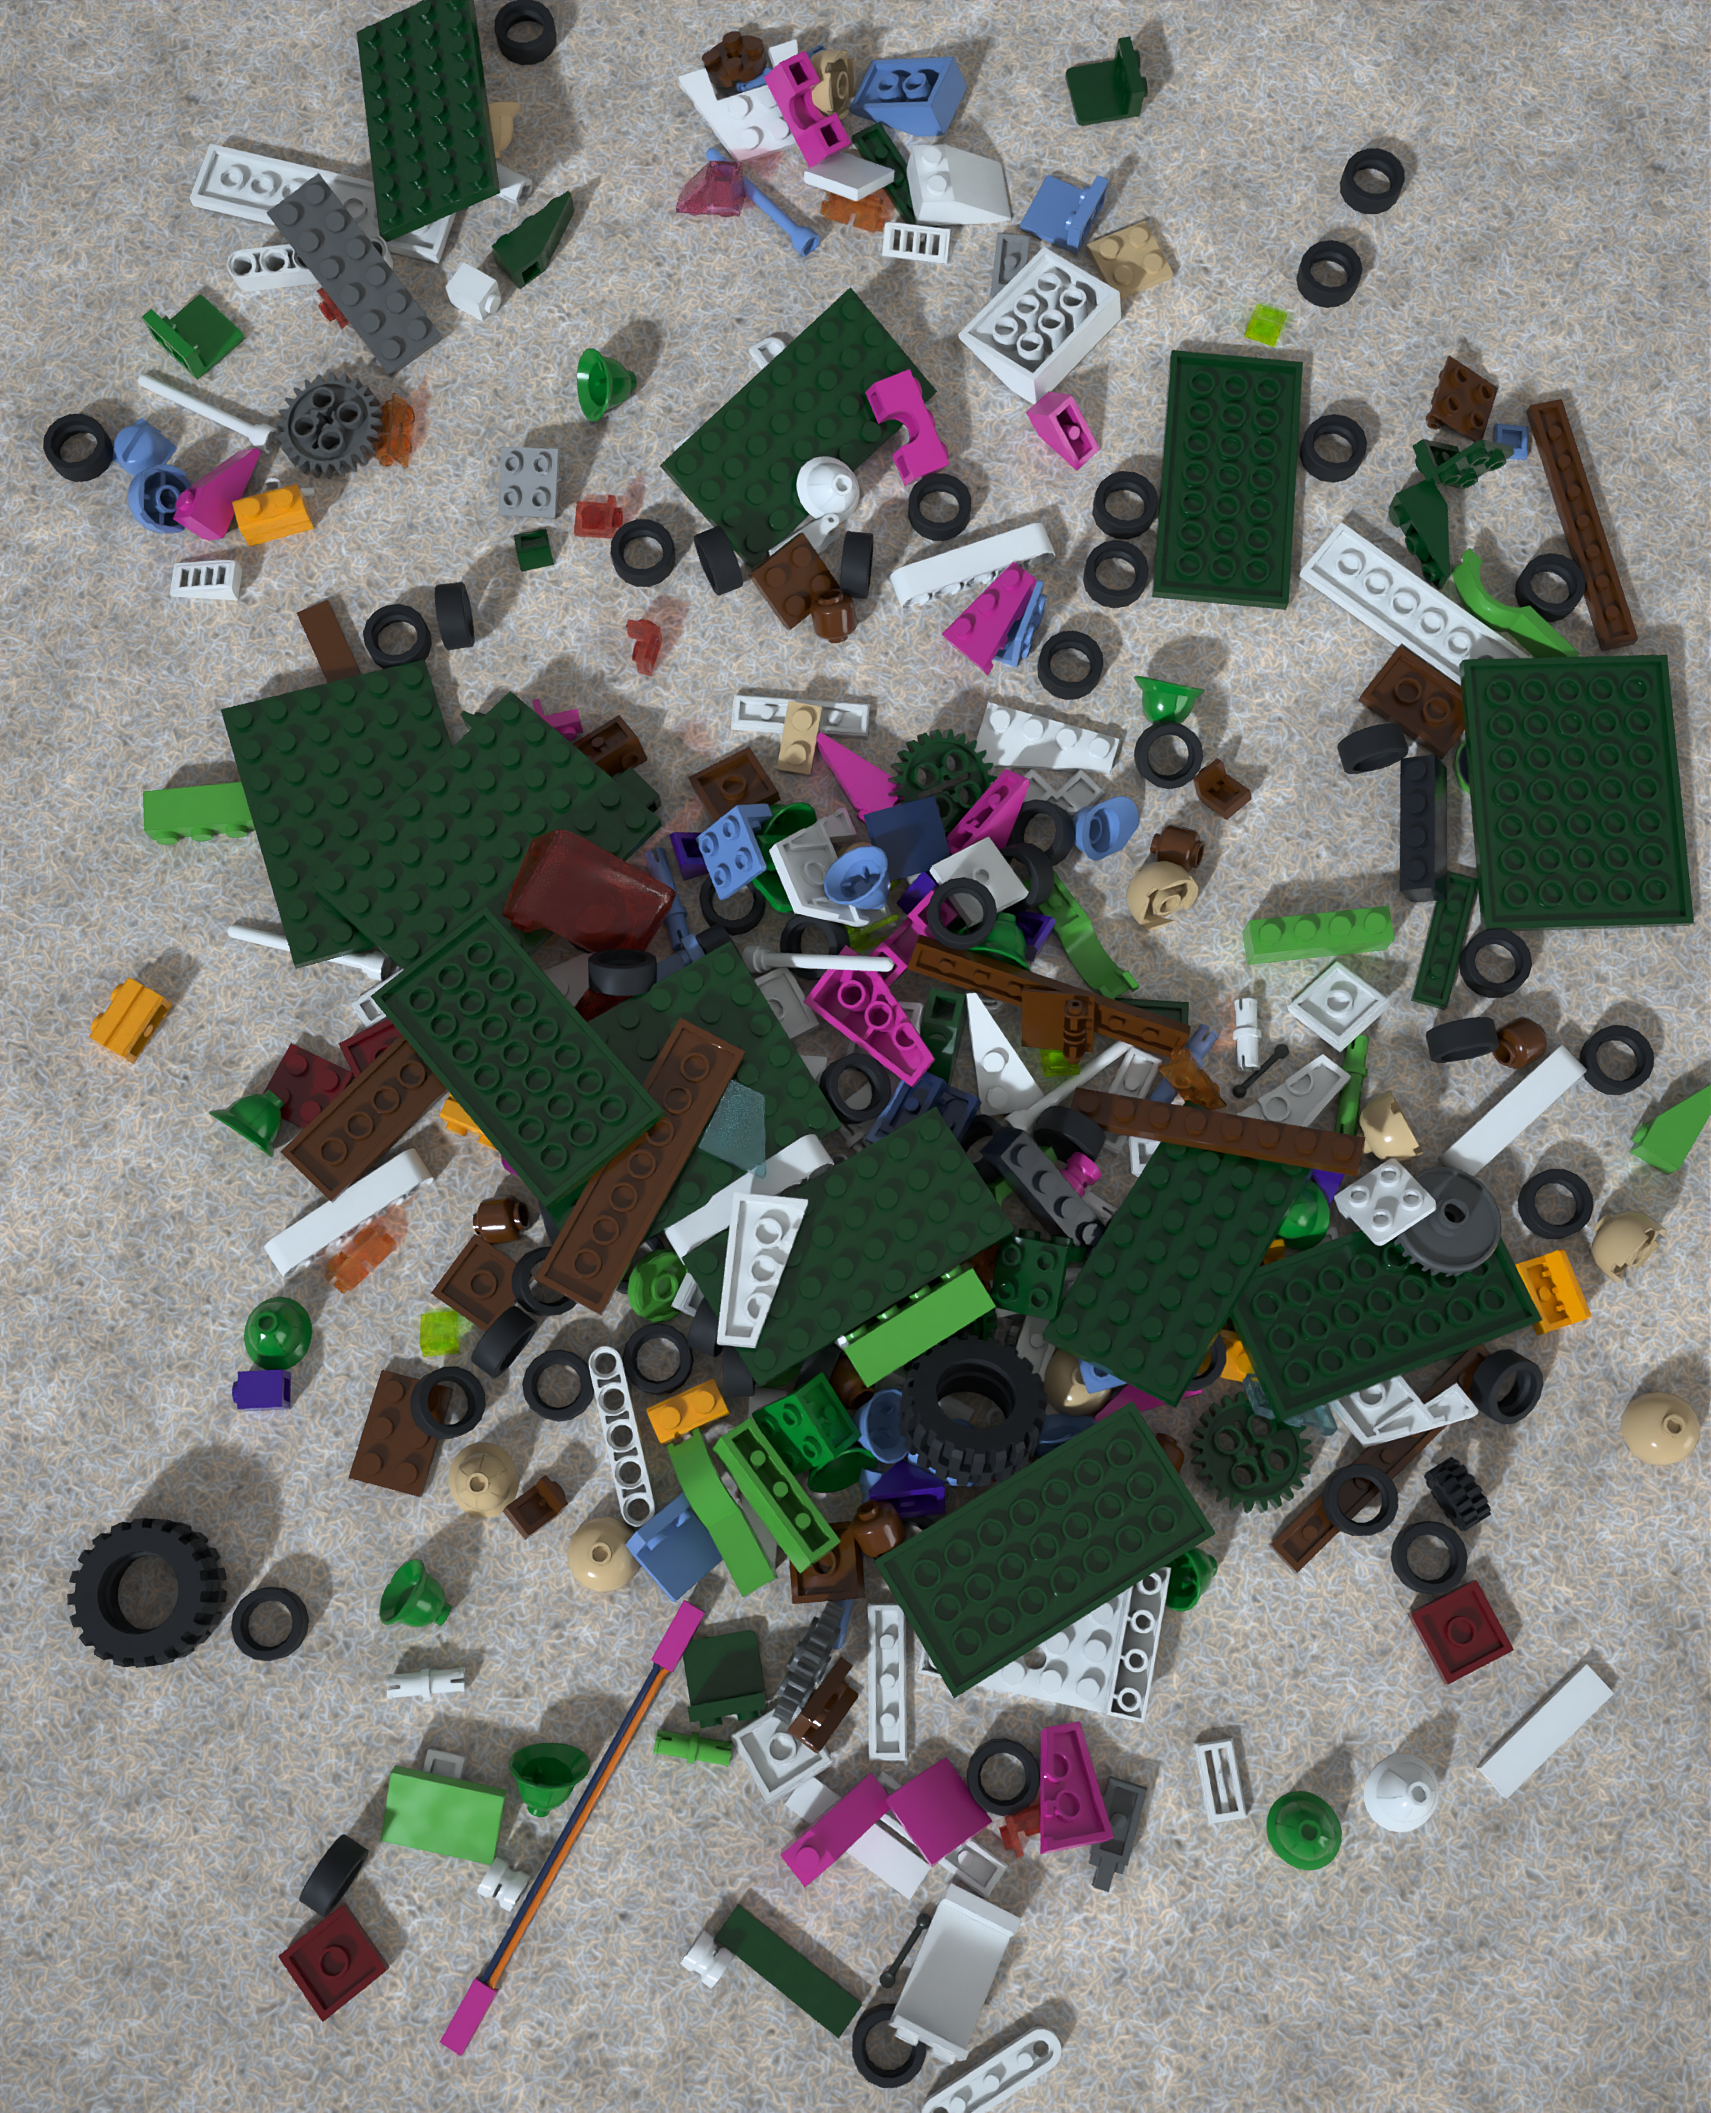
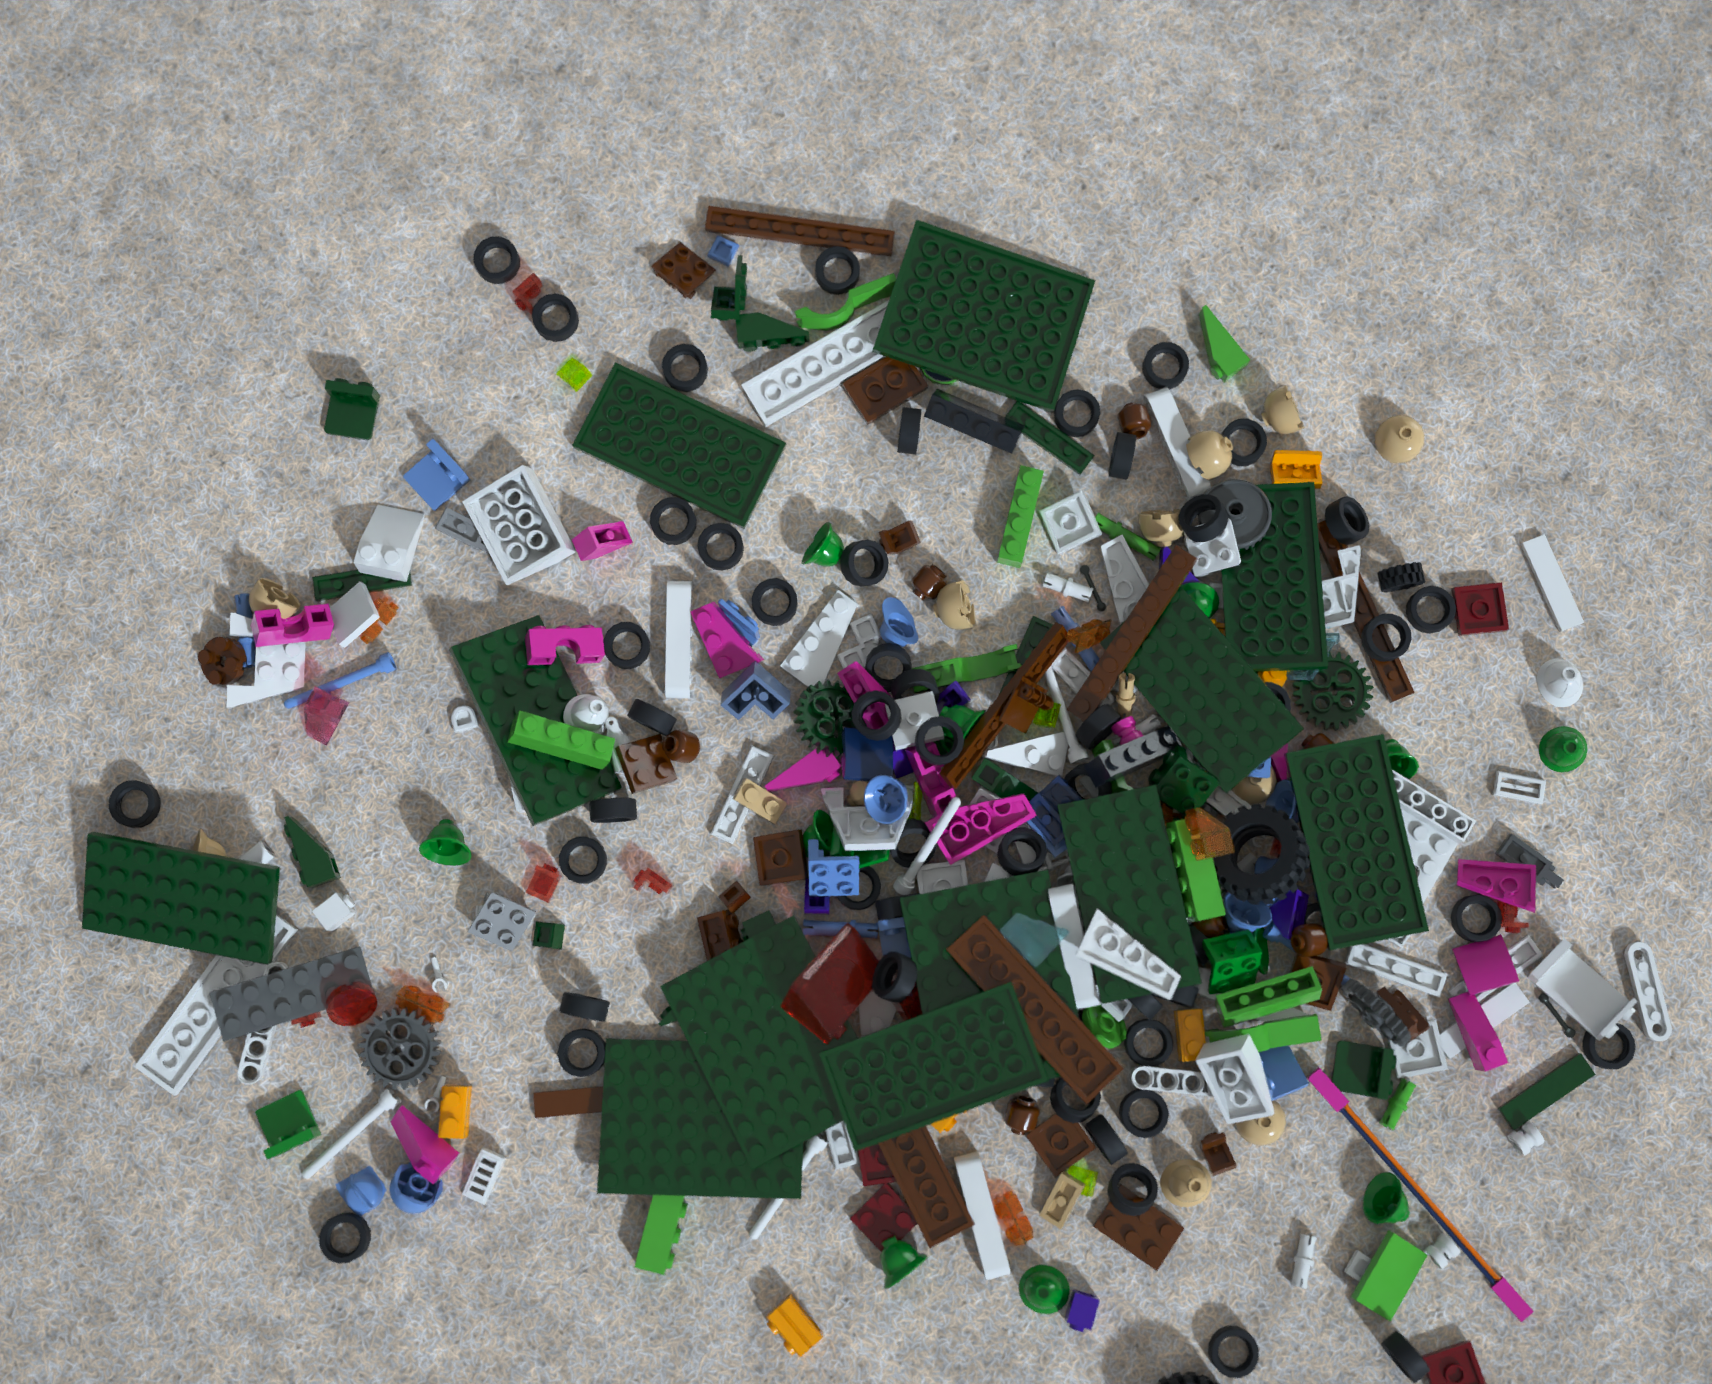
camera: 70 degrees left, 5 degrees up
(364, 347) = (351, 1004): none -> clear red tile
(403, 1312) = (1062, 1200): none -> tan plate
(413, 1598) = (1248, 1253): green hat -> none
(435, 441) = (438, 975): none -> white hand
(566, 722) = (691, 959): dark pink bracket -> none
(644, 1485) = (1236, 1078): none -> white slope
(662, 751) = (734, 897): none -> reddish brown tile
(782, 457) = (561, 740): none -> bright green brick
(904, 229) = (408, 590): white slope -> none
(911, 94) = (300, 548): medium blue slope -> none
(945, 679) = (756, 688): none -> sand blue brick
(969, 1320) = (1208, 835): none -> clear orange slope
(971, 805) = (862, 704): none -> black tyre
(1126, 1159) = (1125, 696): none -> tan pin
(1130, 260) = (490, 446): tan plate -> none
(1348, 227) = (527, 289): none -> clear red bracket
(1411, 1182) = (1210, 529): none -> black tyre
(1518, 1156) = (1210, 452): none -> tan cylinder

